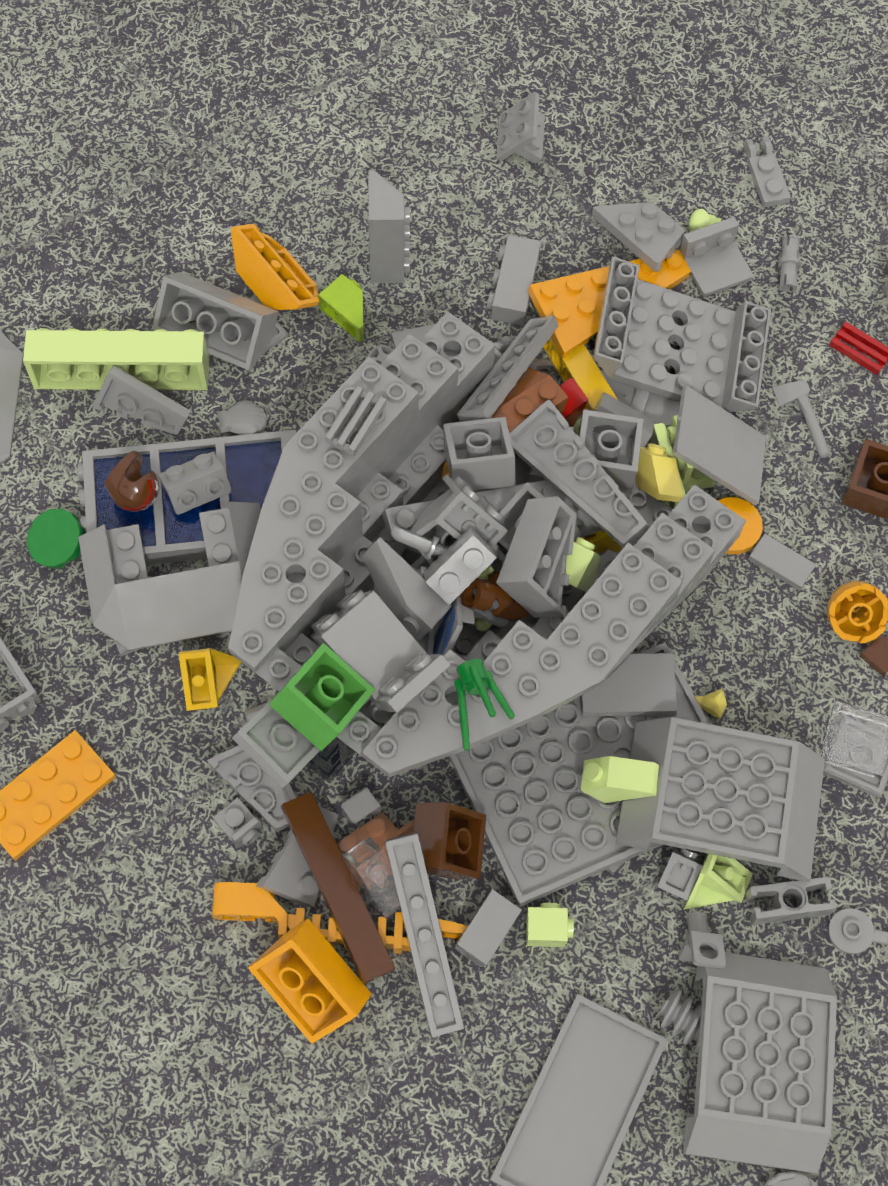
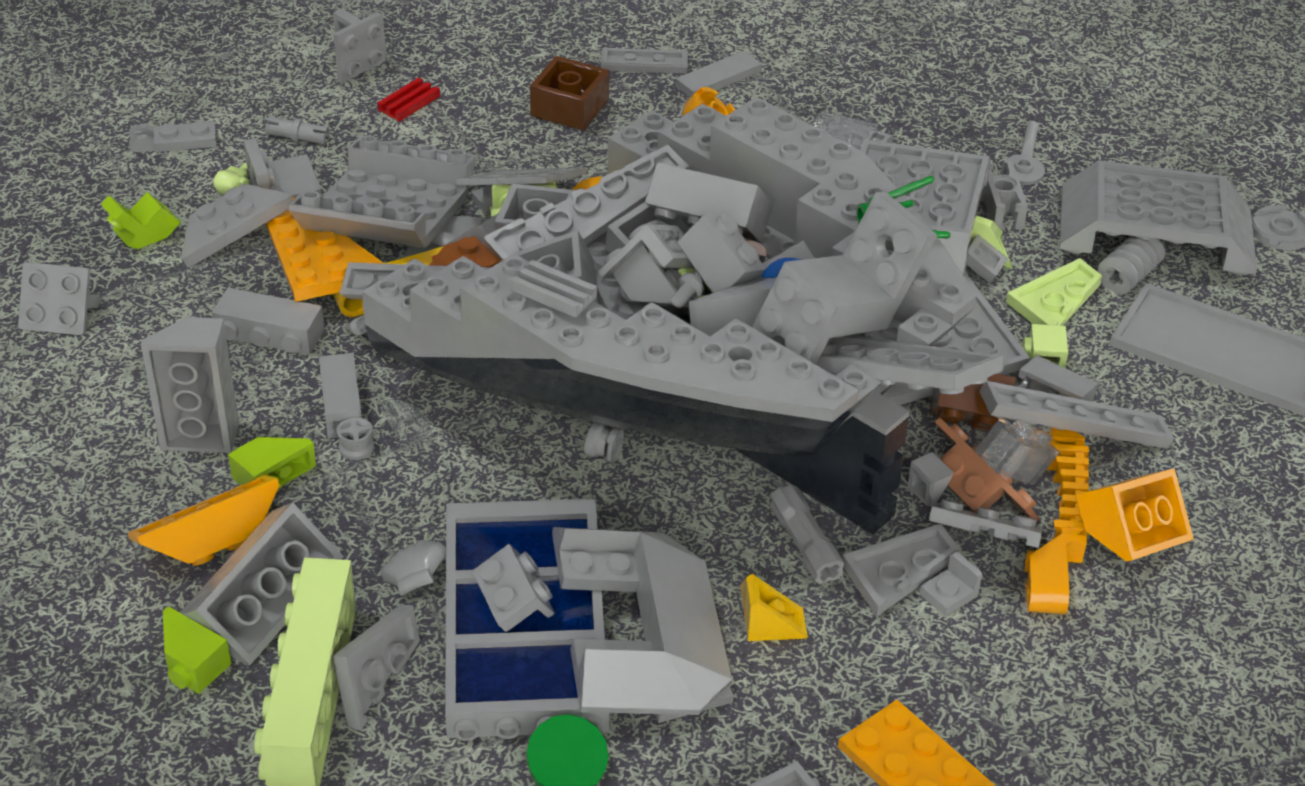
camera: 85 degrees left, 25 degrees down
(129, 487) = (524, 641): reddish brown helmet -> none
(145, 285) = (192, 652): none -> lime slope
(322, 697) = (900, 325): bright green brick -> none
(338, 888) = (1029, 483): reddish brown tile -> none
(628, 168) = (142, 224): none -> lime brick
(636, 945) = (1056, 294): none -> yellowish green wing
(700, 938) = (1050, 249): light grey bracket -> none
(799, 392) = (457, 142): light grey piece -> none

